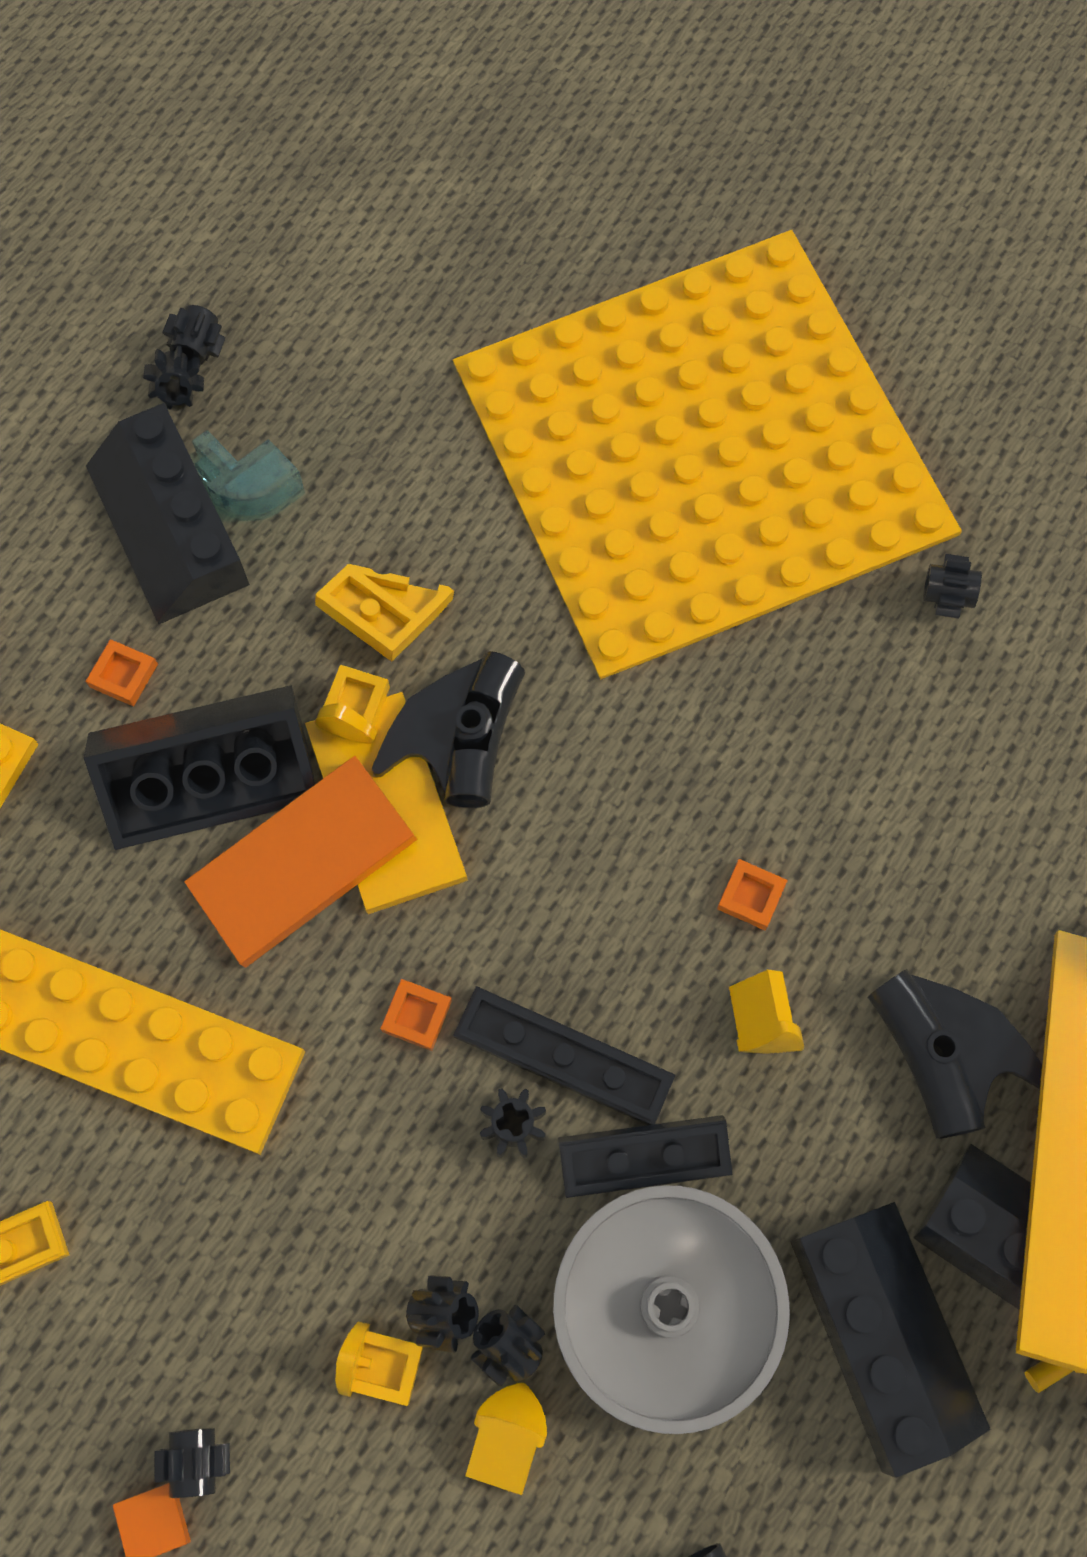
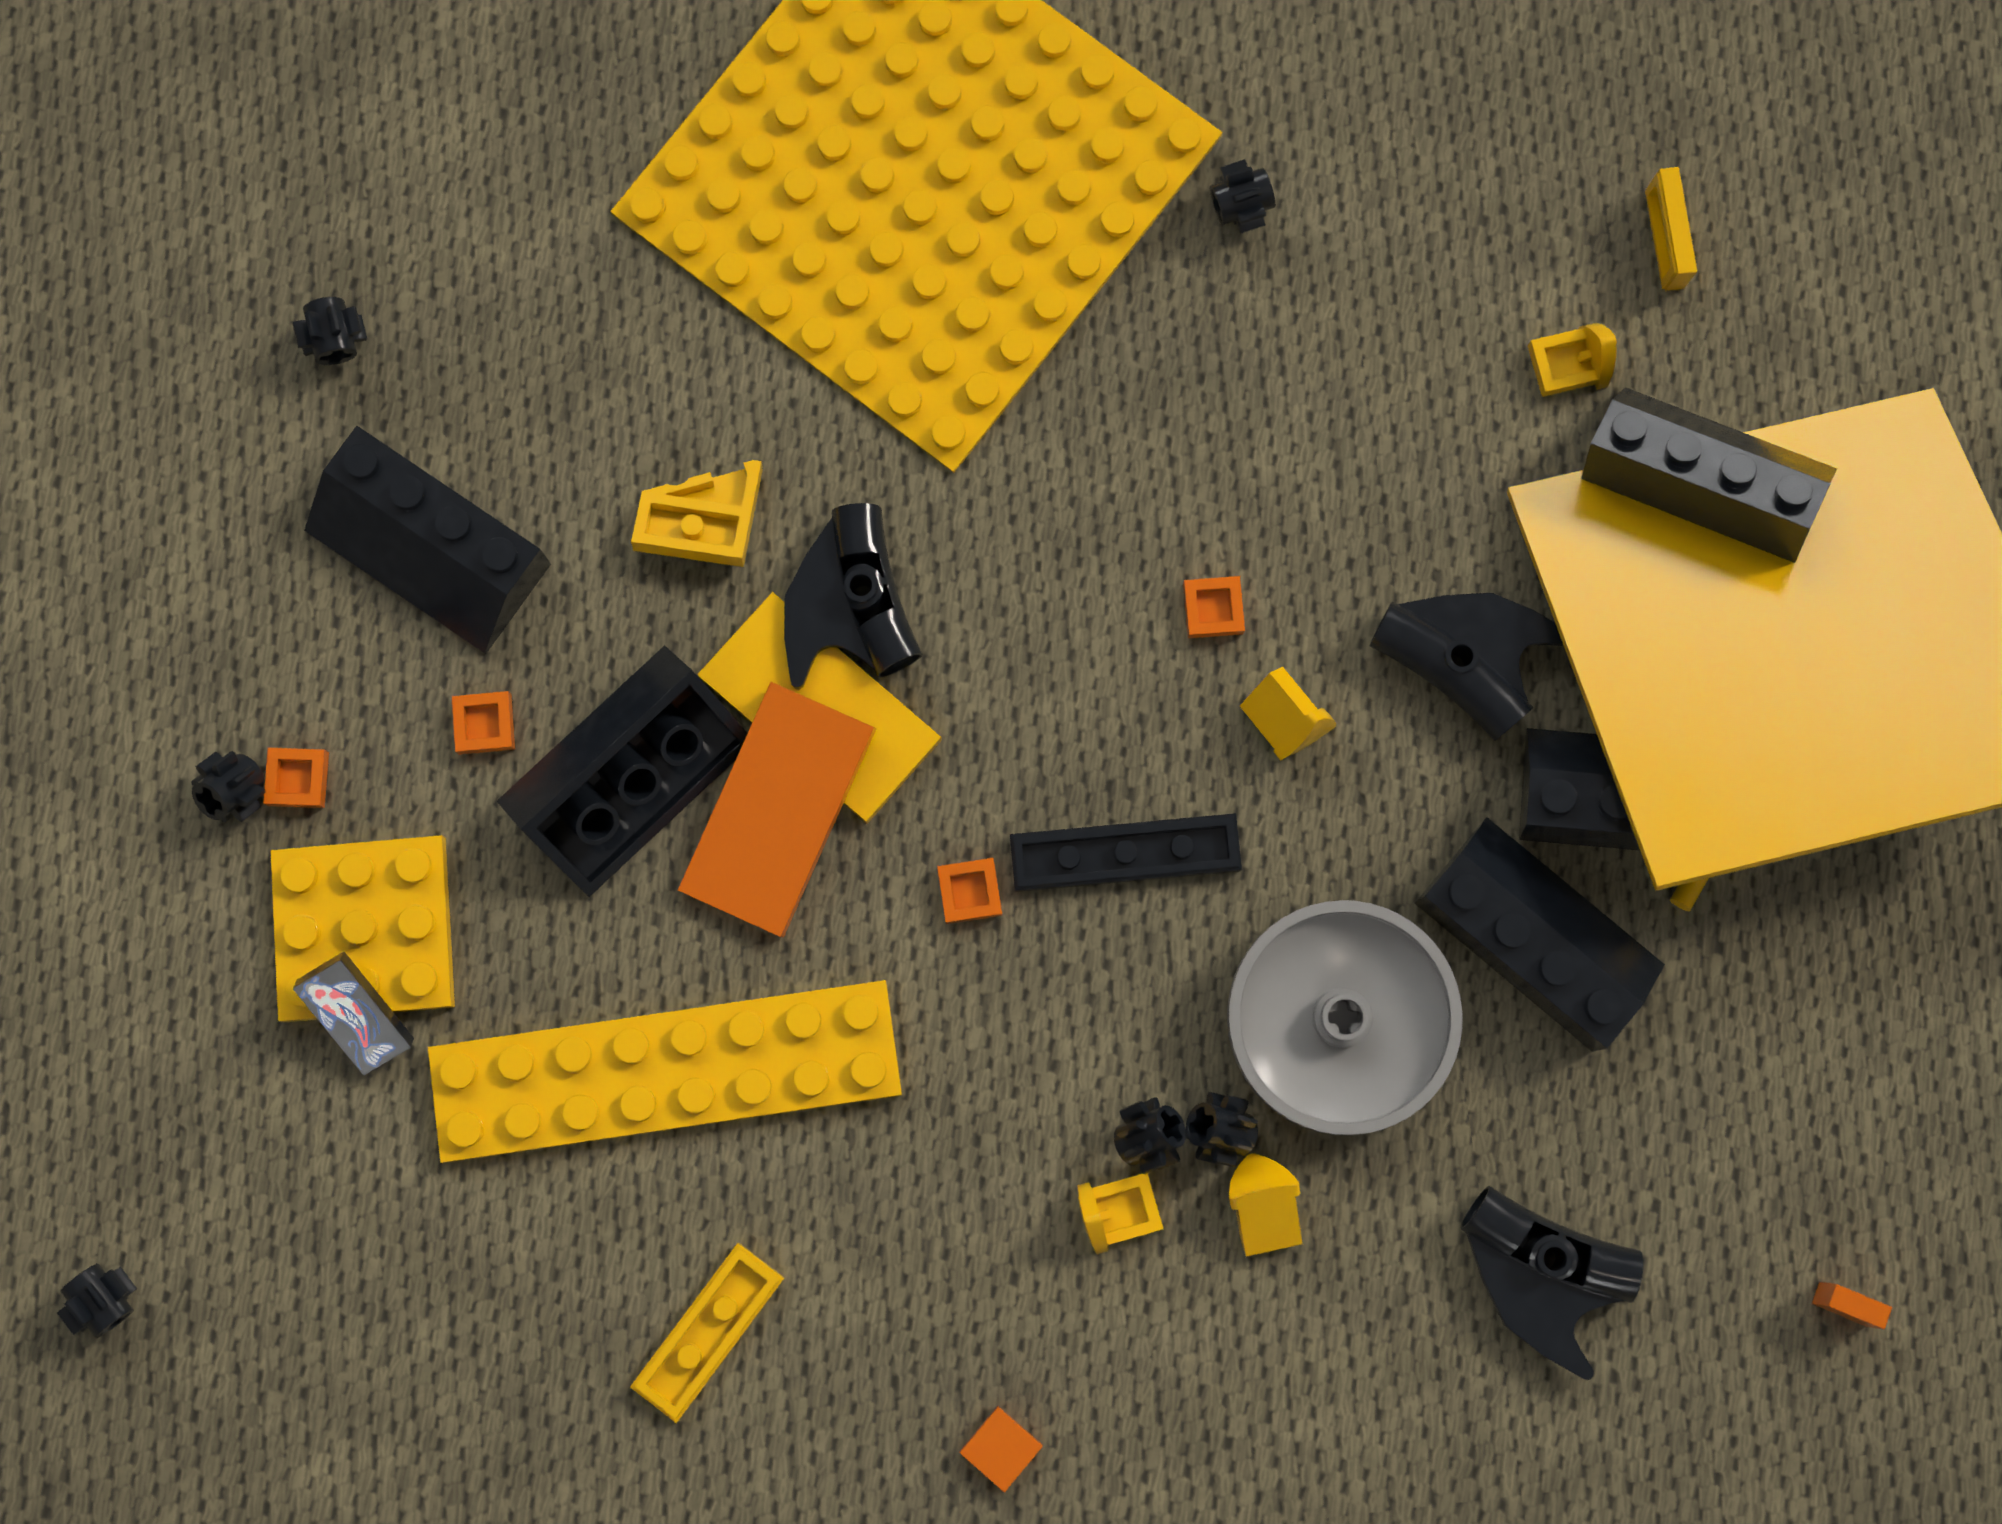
camera: 30 degrees left, 10 degrees up
(170, 390) = (339, 389): black gear -> none
(192, 1463) = (1008, 1379): black gear -> none
(252, 487) = (495, 463): clear light blue brick -> none
(353, 705) = (735, 632): yellow tile -> none
(505, 1136) = (1113, 922): black gear -> none
(645, 1156) = (1248, 901): black tile -> none

